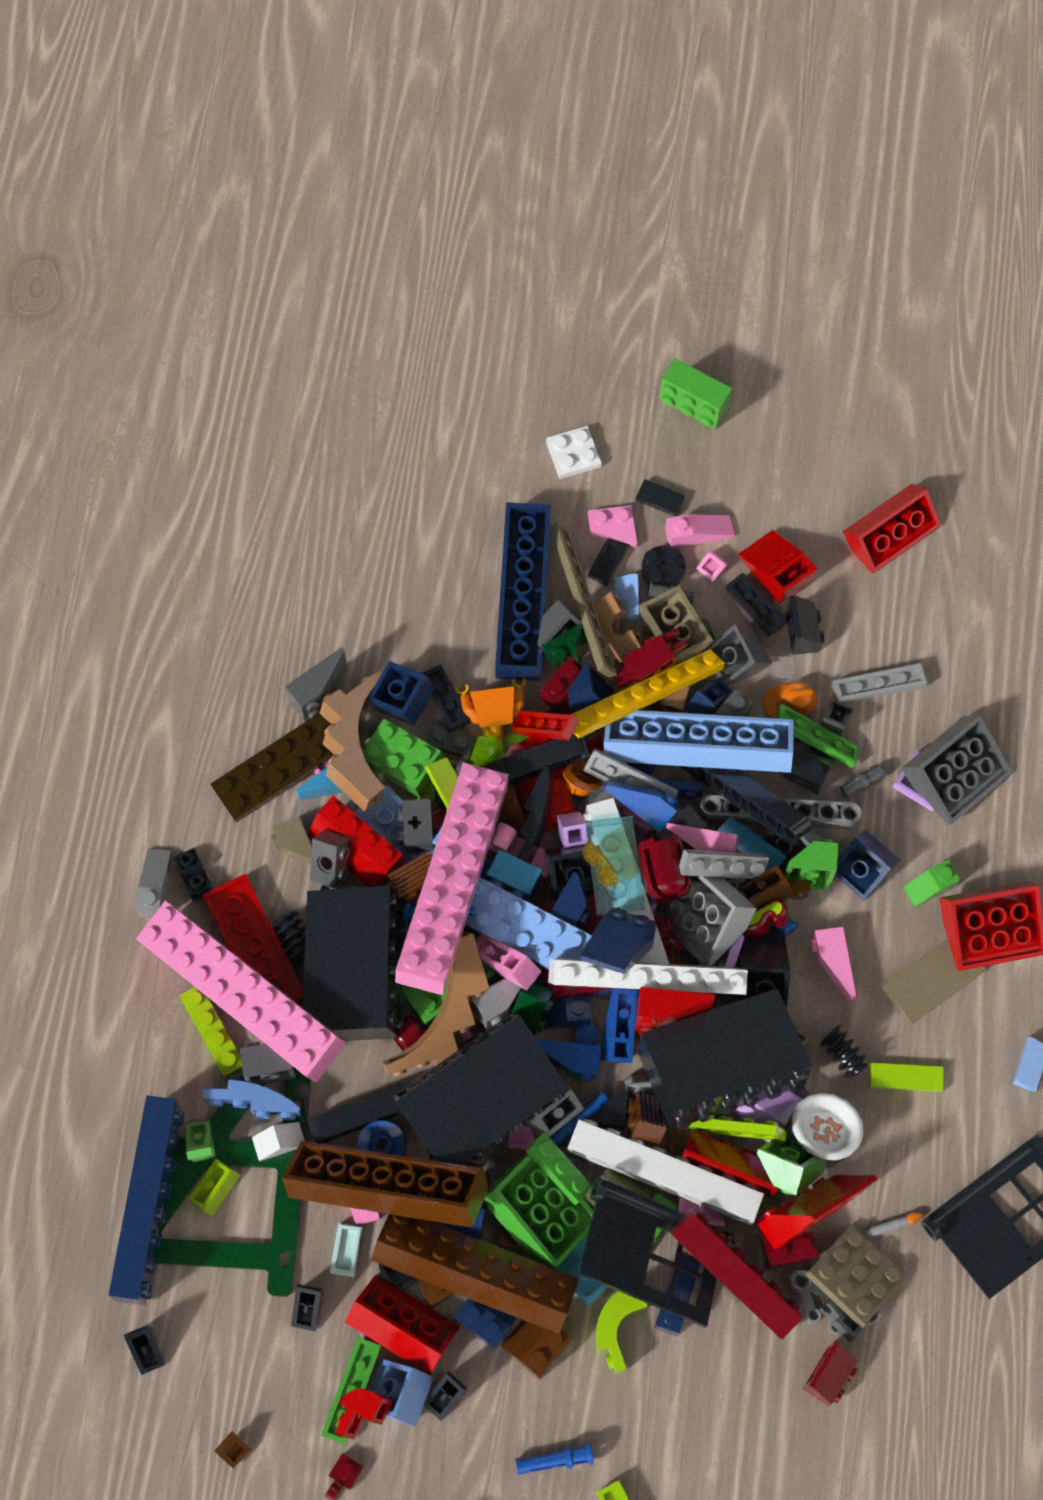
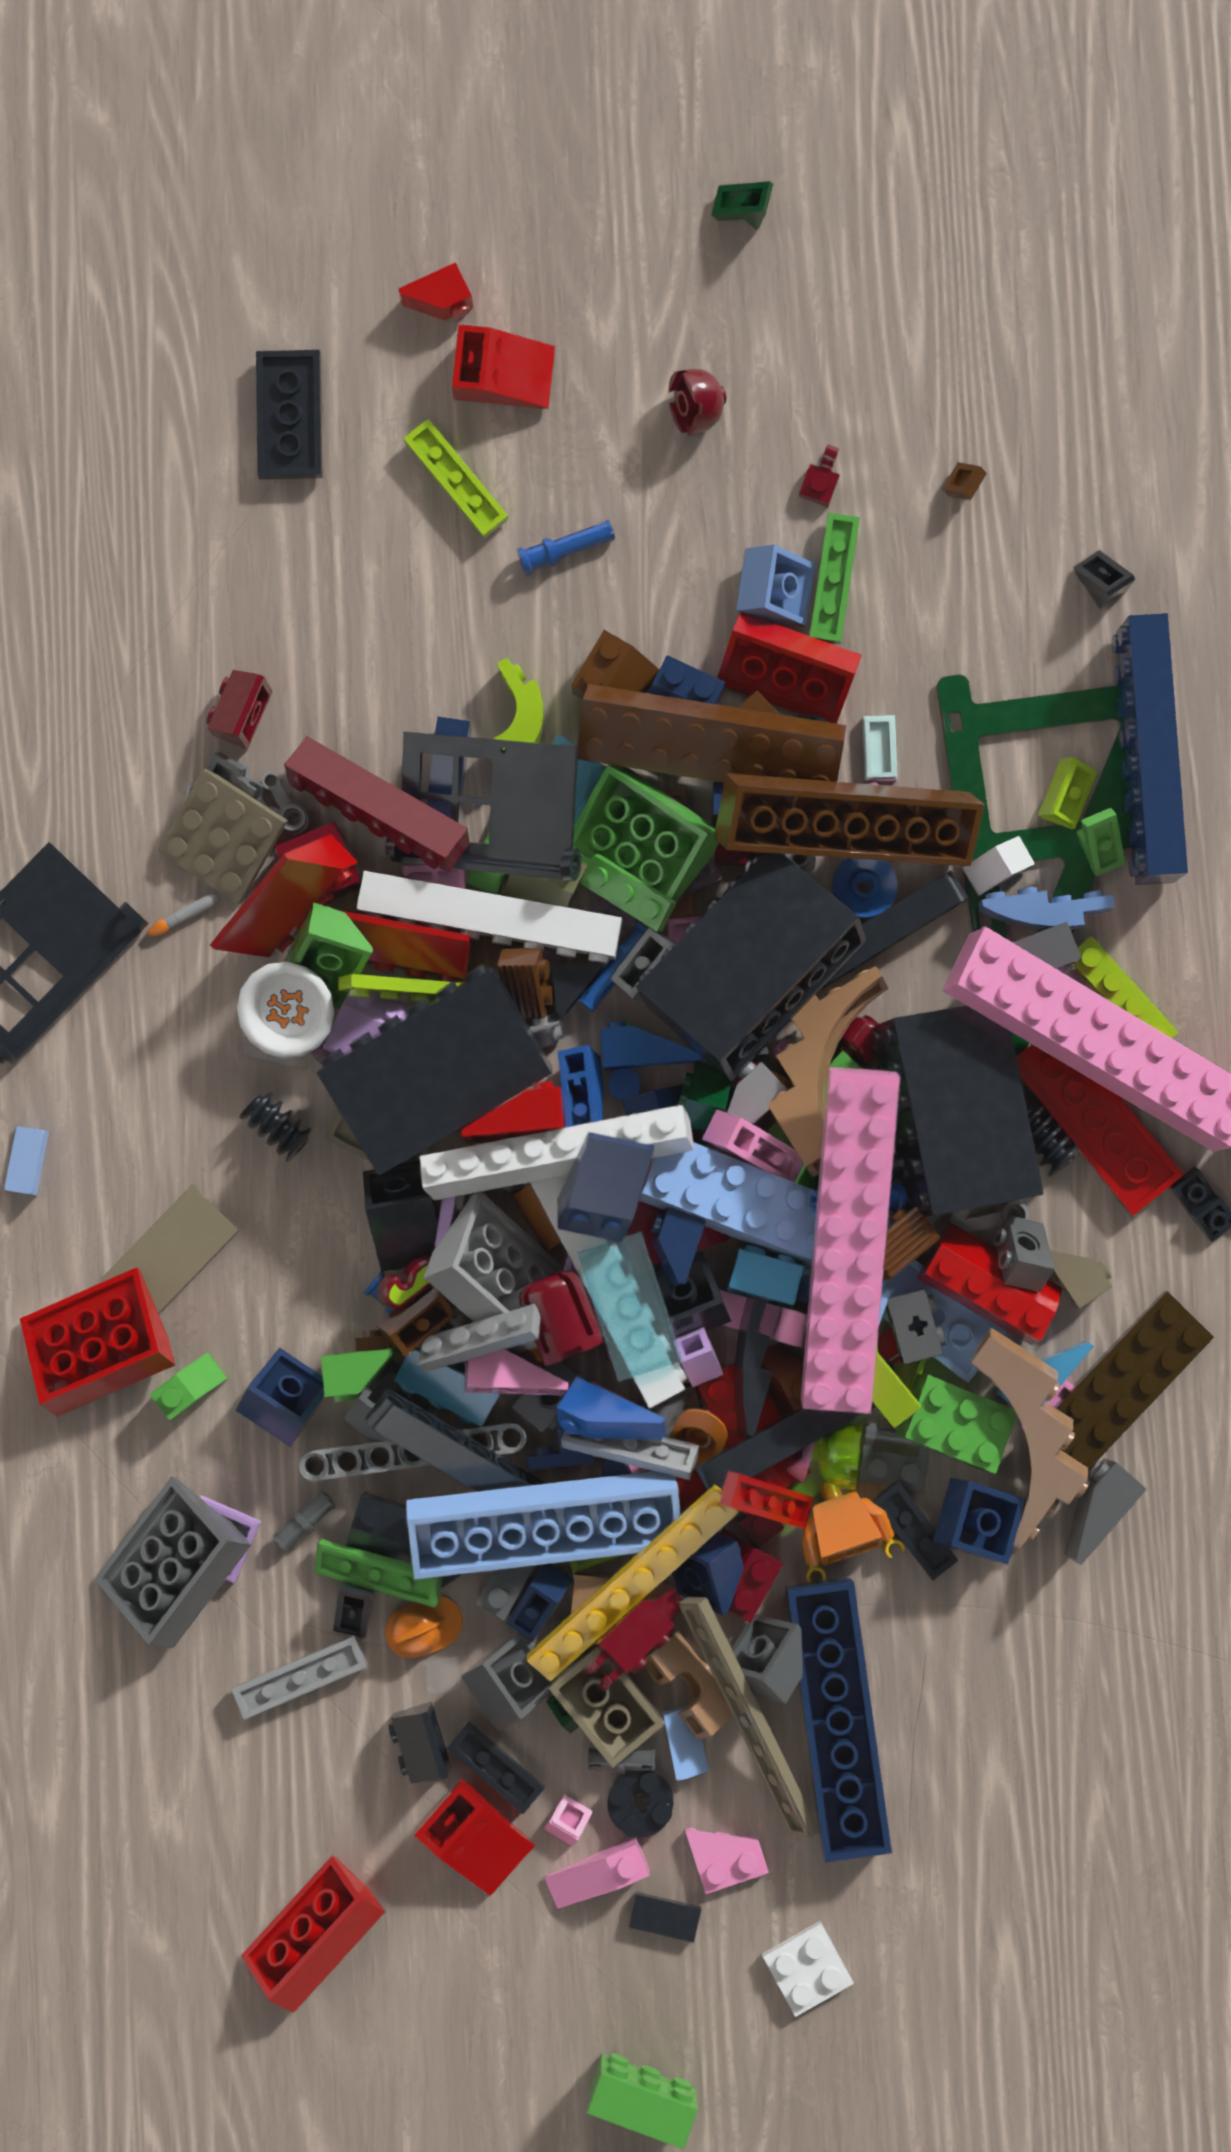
camera: 170 degrees right, 15 degrees up
(307, 1307) = (912, 668): black slope -> none
(361, 1405) = (813, 553): red brick -> none
(445, 1396) = (714, 595): black slope -> none
(567, 644) = (756, 1640): dark green slope -> none
(605, 872) = (639, 1286): clear yellow slope -> none
(607, 562) = (723, 1795): black tile -> none
(666, 931) = (543, 1236): dark red plate -> none
(833, 956) = (310, 1257): bright pink slope -> none
(906, 1077) = (190, 1111): lime tile -> none

